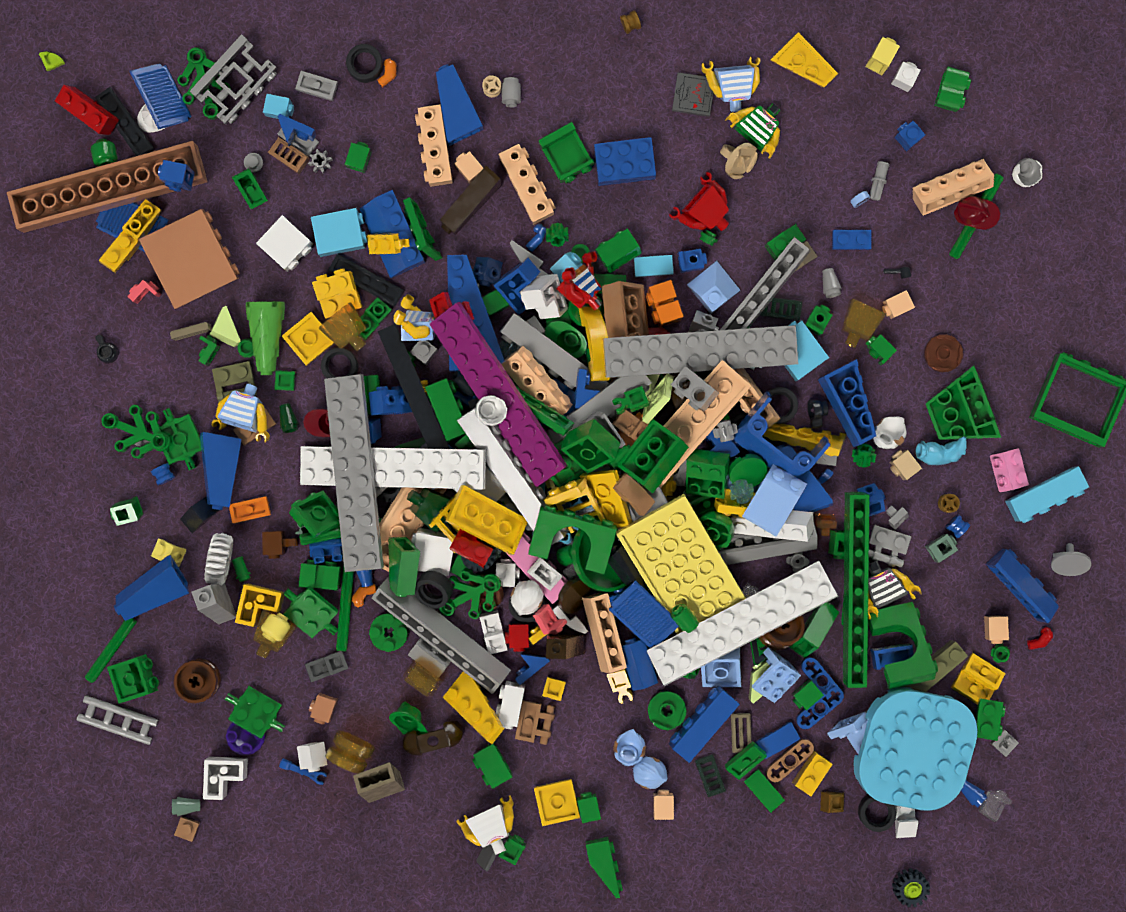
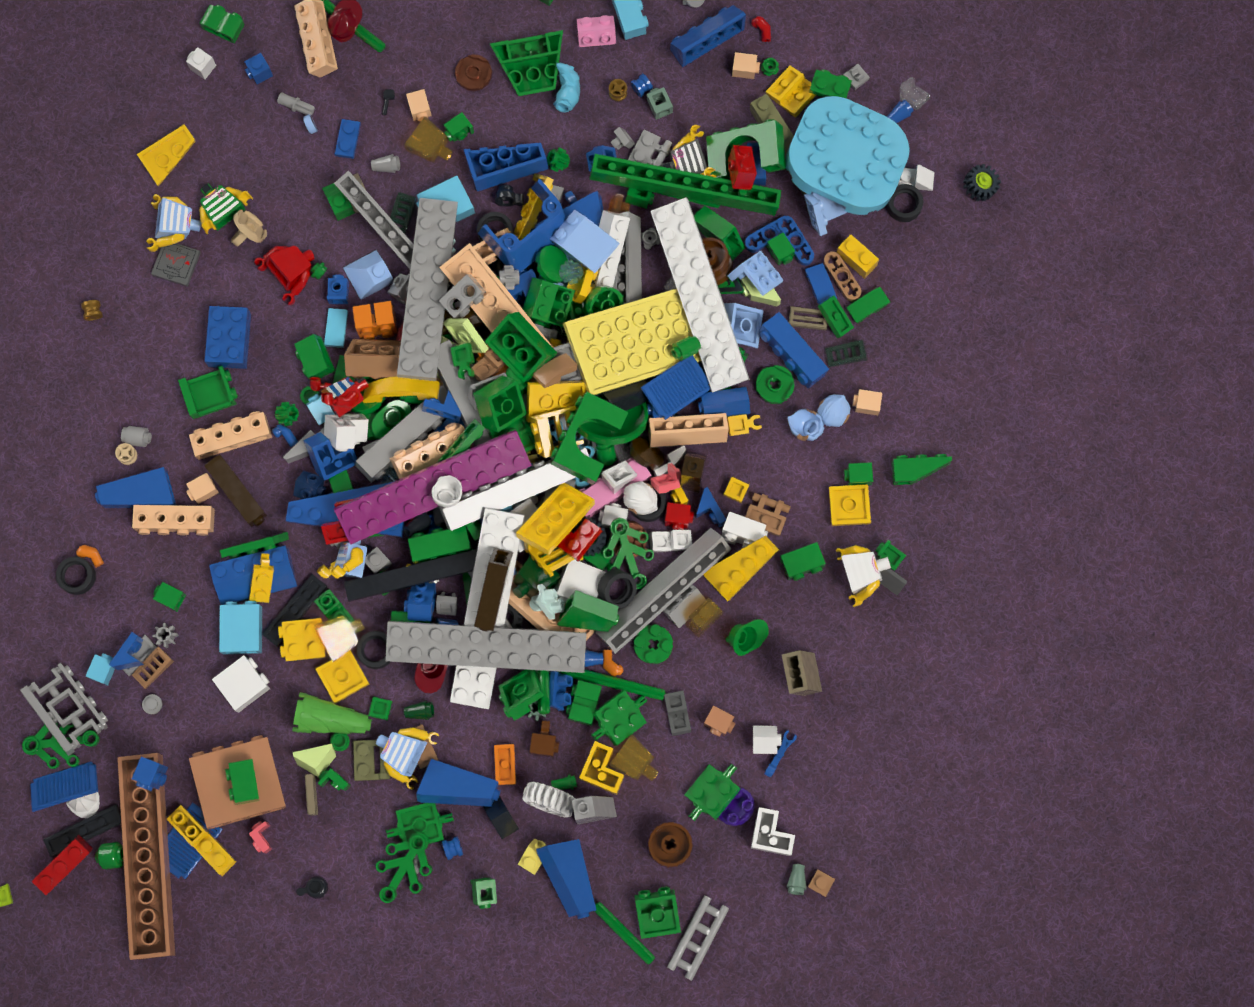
camera: 75 degrees left, 10 degrees down
(185, 265) = (243, 782): none -> green brick
(249, 188) = (178, 710): green slope -> none
(275, 627) = (628, 751): light yellow head -> none
(316, 86) = (88, 627): light grey plate -> none
(350, 752) = (766, 698): clear yellow wheel -> none
(393, 426) = (446, 604): none -> light grey tile
(406, 472) = (493, 589): none -> dark brown slope
(406, 524) = (547, 602): none -> light aqua hips
(447, 736) = (770, 631): dark brown piece -> none
(814, 325) = (426, 181): green brick -> none
(832, 802) = (889, 244): pearl gold slope -> none
(882, 55) = (176, 79): light yellow brick -> none
(882, 645) = (742, 167): none -> red brick
(890, 432) = (540, 130): white hair -> none
(904, 464) = (574, 124): tan brick -> none

